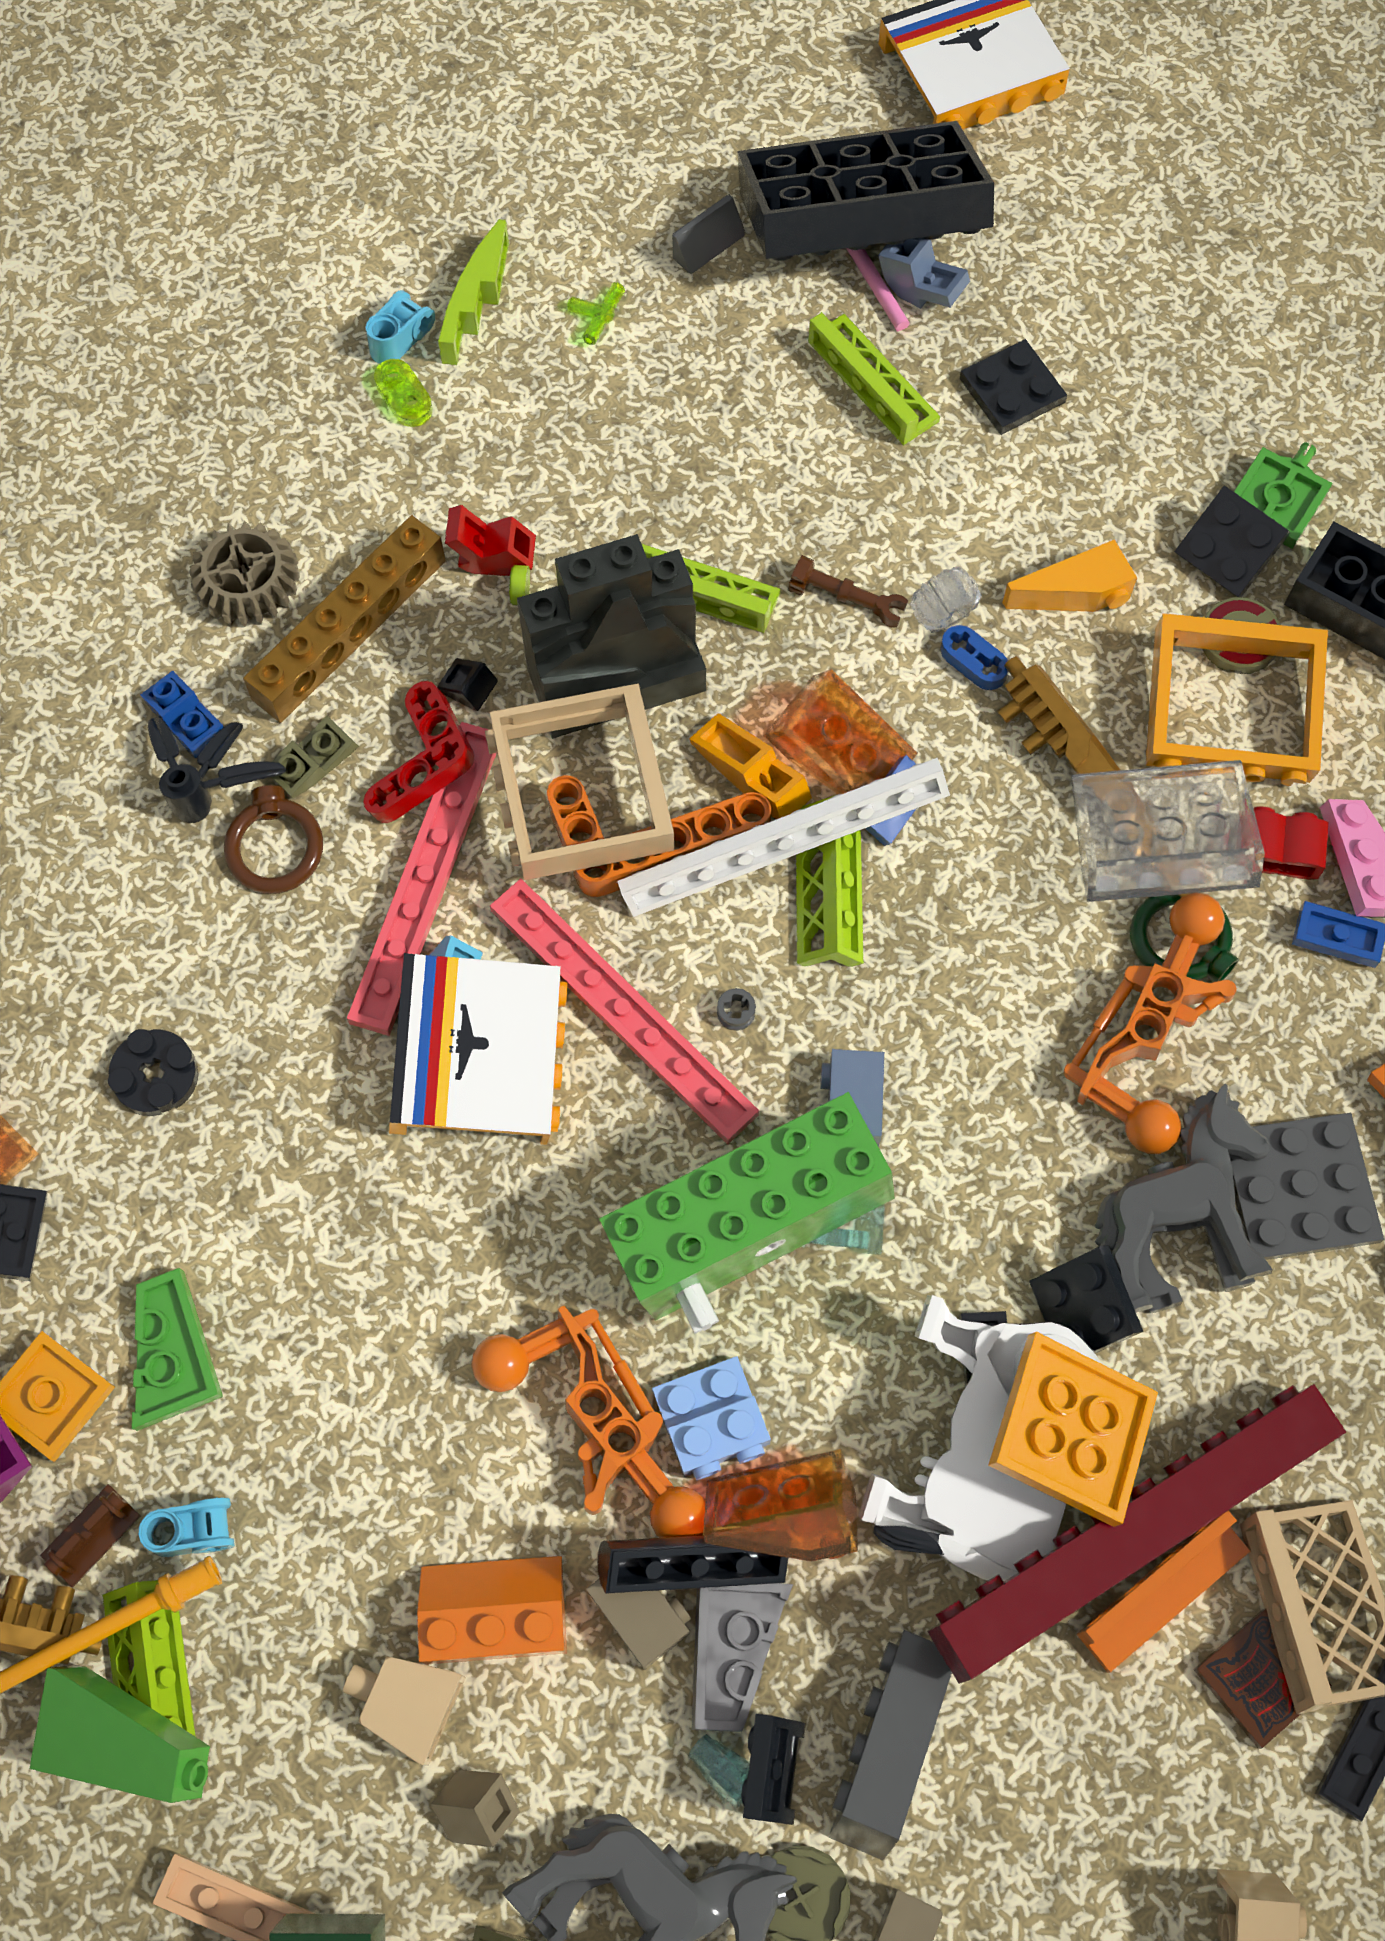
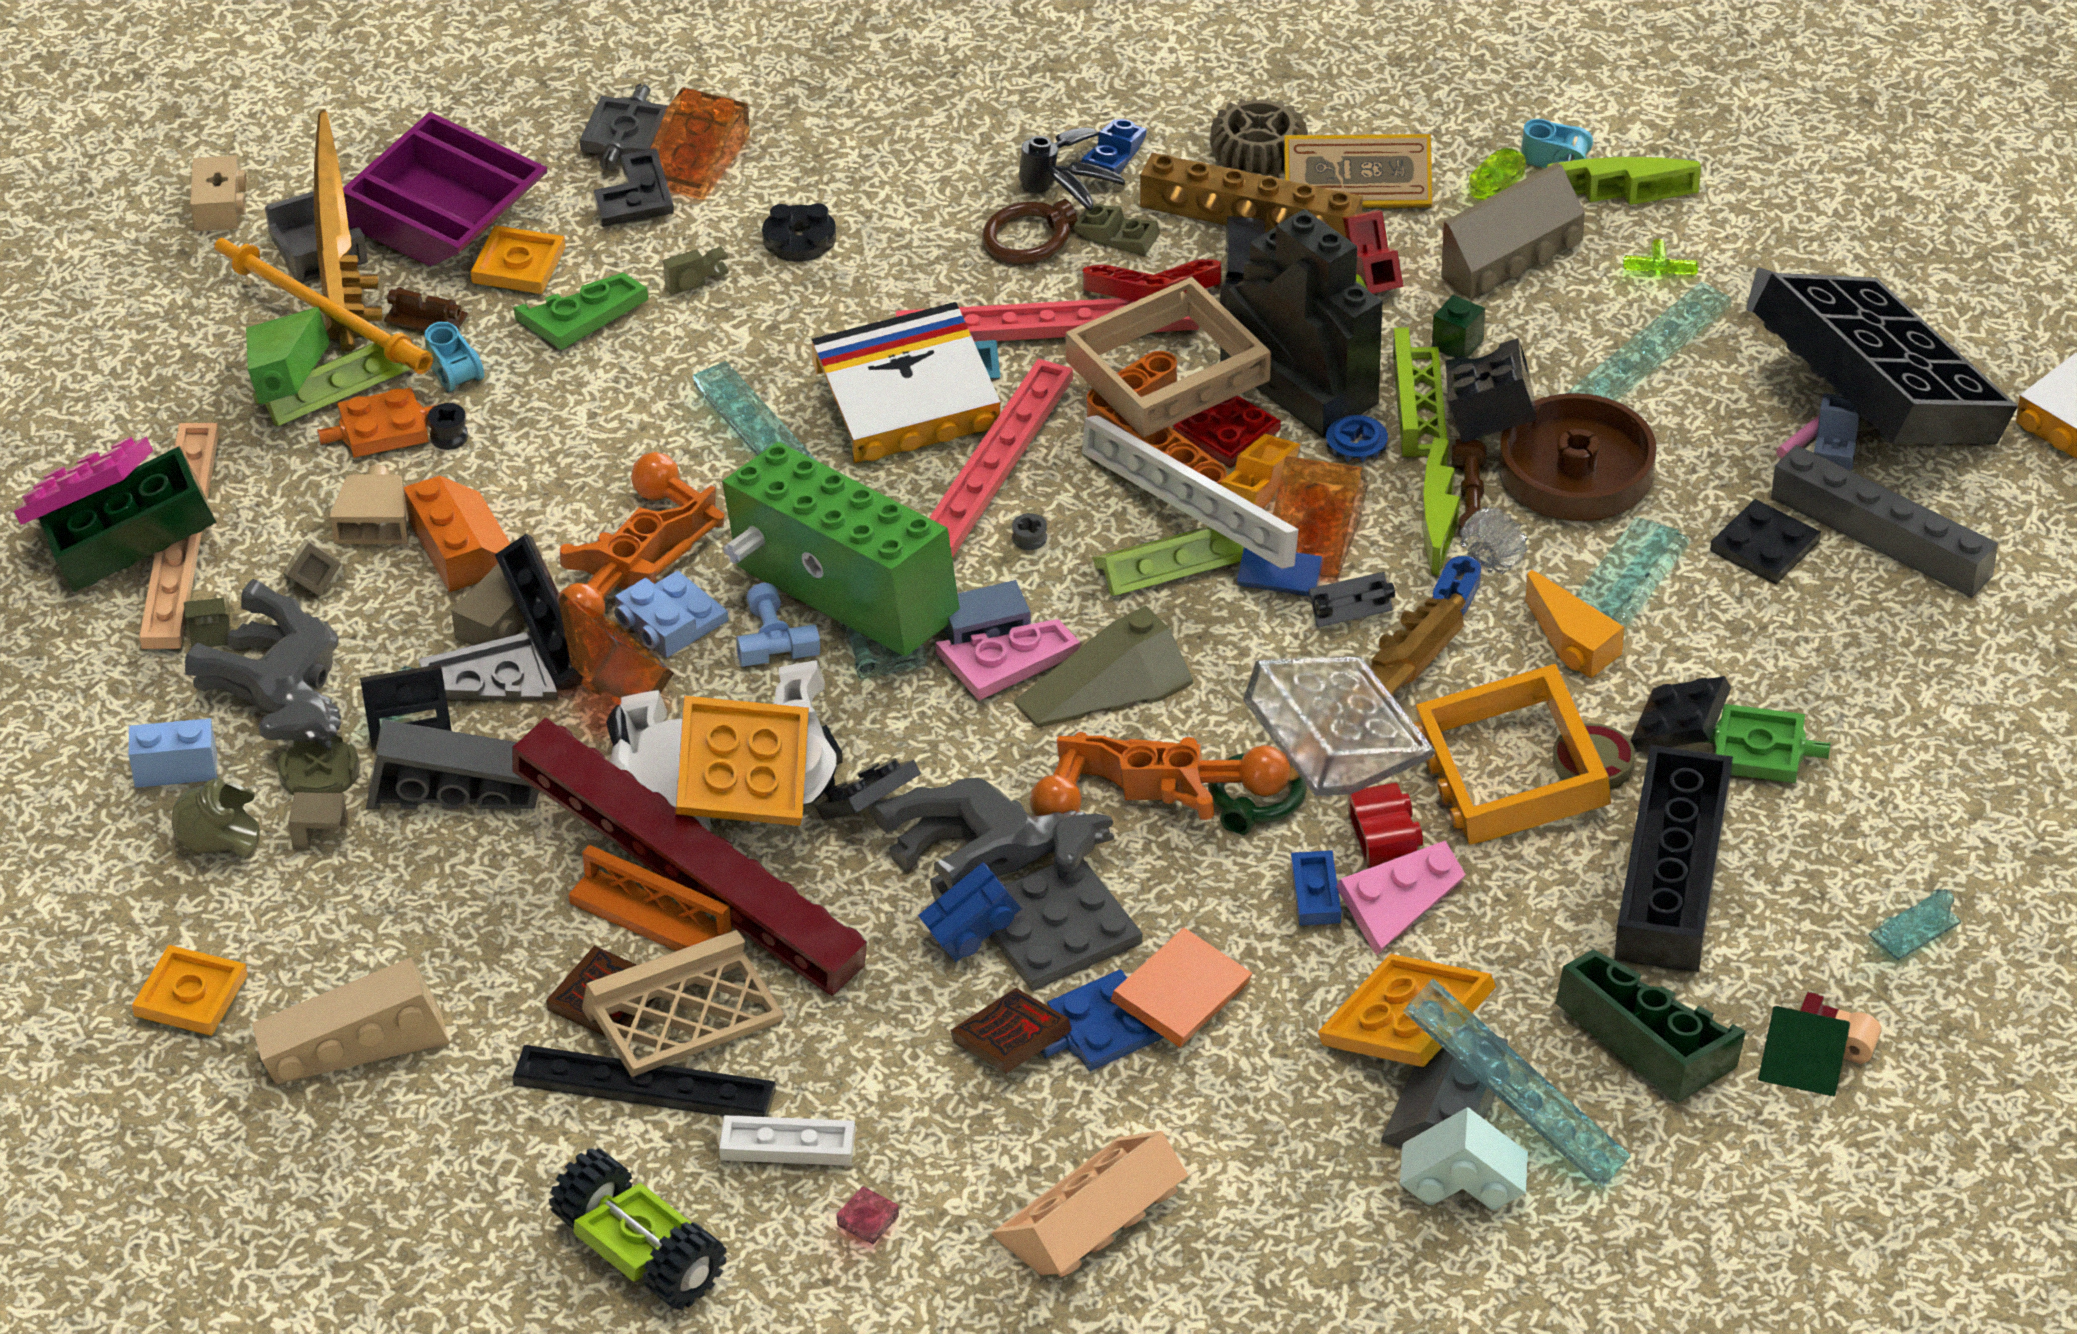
camera: 70 degrees right, 25 degrees down
(171, 1214) = (690, 269): none -> olive plate
(253, 1645) = (379, 422): none -> orange plate
(312, 1574) = (447, 426): none -> black wheel
(352, 503) = (1379, 167): none -> tile
(406, 646) = (1239, 234): none -> black slope
(478, 1220) = (744, 409): none -> clear light blue plate
(524, 413) = (1511, 232): none -> dark tan slope
(626, 509) = (1458, 327): none -> dark green brick
(678, 763) = (1227, 428): none -> red tile
(715, 373) = (1655, 343): none -> clear light blue tile
(729, 645) = (1349, 428): none -> blue gear
(752, 517) = (1490, 391): none -> black brick
(801, 1320) = (774, 635): none -> light blue bar
(817, 480) = (1579, 458): none -> reddish brown piece
(866, 381) = (1699, 436): lime fence -> none
(878, 634) = (1440, 506): none -> lime slope
(918, 1099) = (1004, 660): none -> bright pink wing
(963, 764) = (1351, 599): none -> black hinge
(981, 1007) = (1118, 666): none -> olive wedge
(1001, 509) = (1633, 569): none -> clear light blue windscreen
(1039, 284) = (1884, 520): none -> dark grey brick
(1299, 1261) = (970, 912): none -> blue brick

